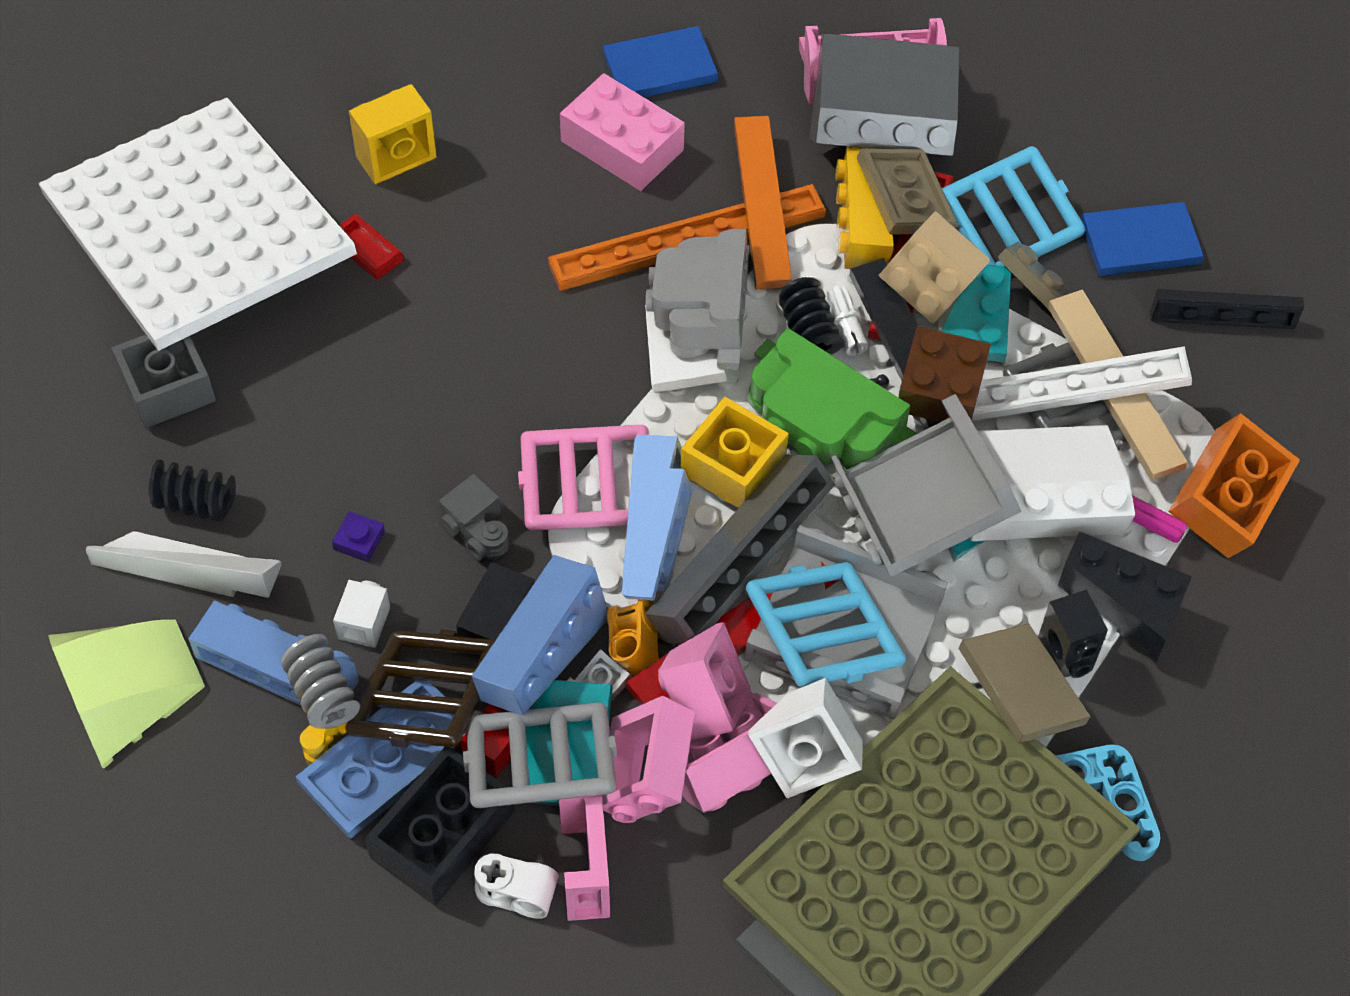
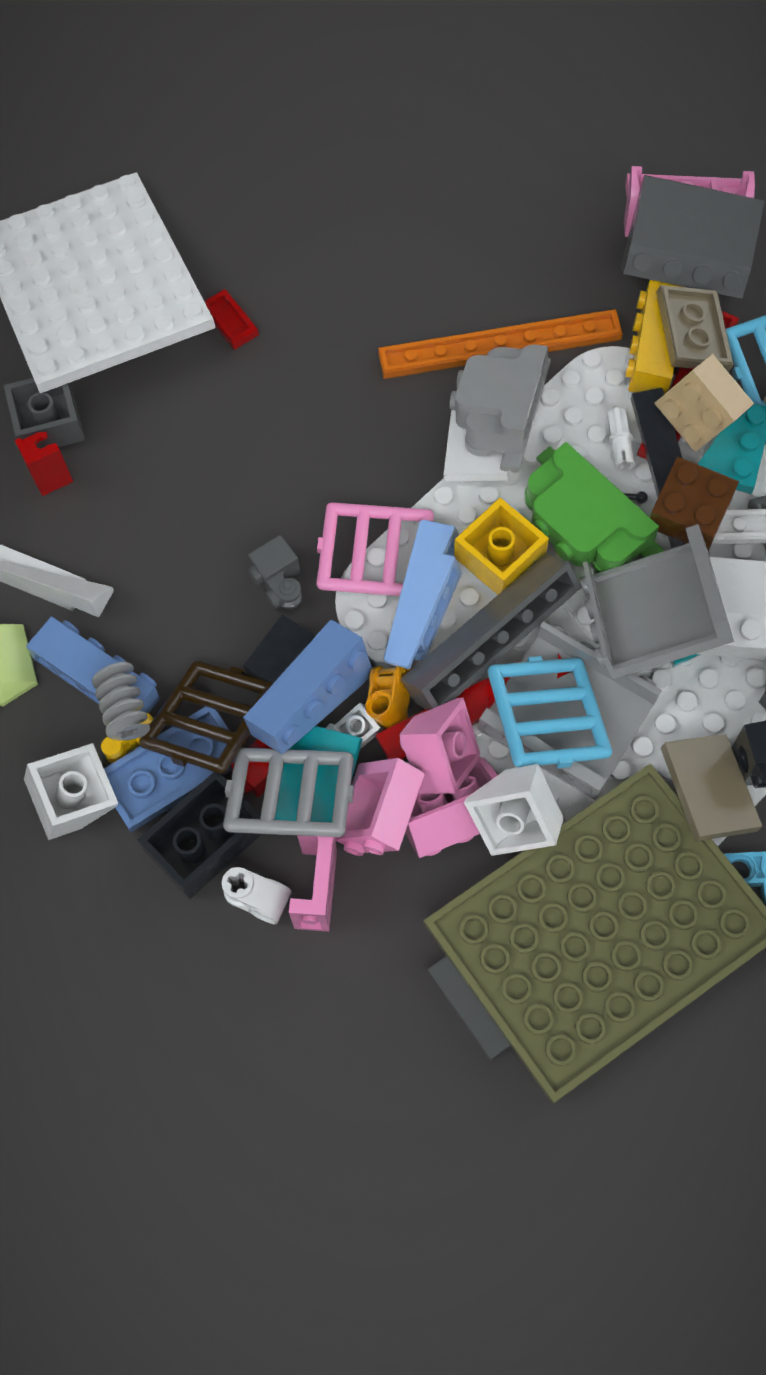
camera: 15 degrees right, 10 degrees up
(175, 432) = (44, 464): none -> red hinge
(190, 493) = (50, 518): black piece -> none
(268, 799) = (69, 790): none -> white slope
(358, 536) = (180, 574): dark purple plate -> none
(362, 613) = (171, 641): white brick -> none
(393, 133) = (265, 222): yellow brick -> none
(622, 131) = (460, 242): bright pink brick -> none
(661, 62) = (504, 182): blue tile -> none
(762, 202) = (568, 321): orange tile -> none
(810, 314) = (588, 431): black piece -> none

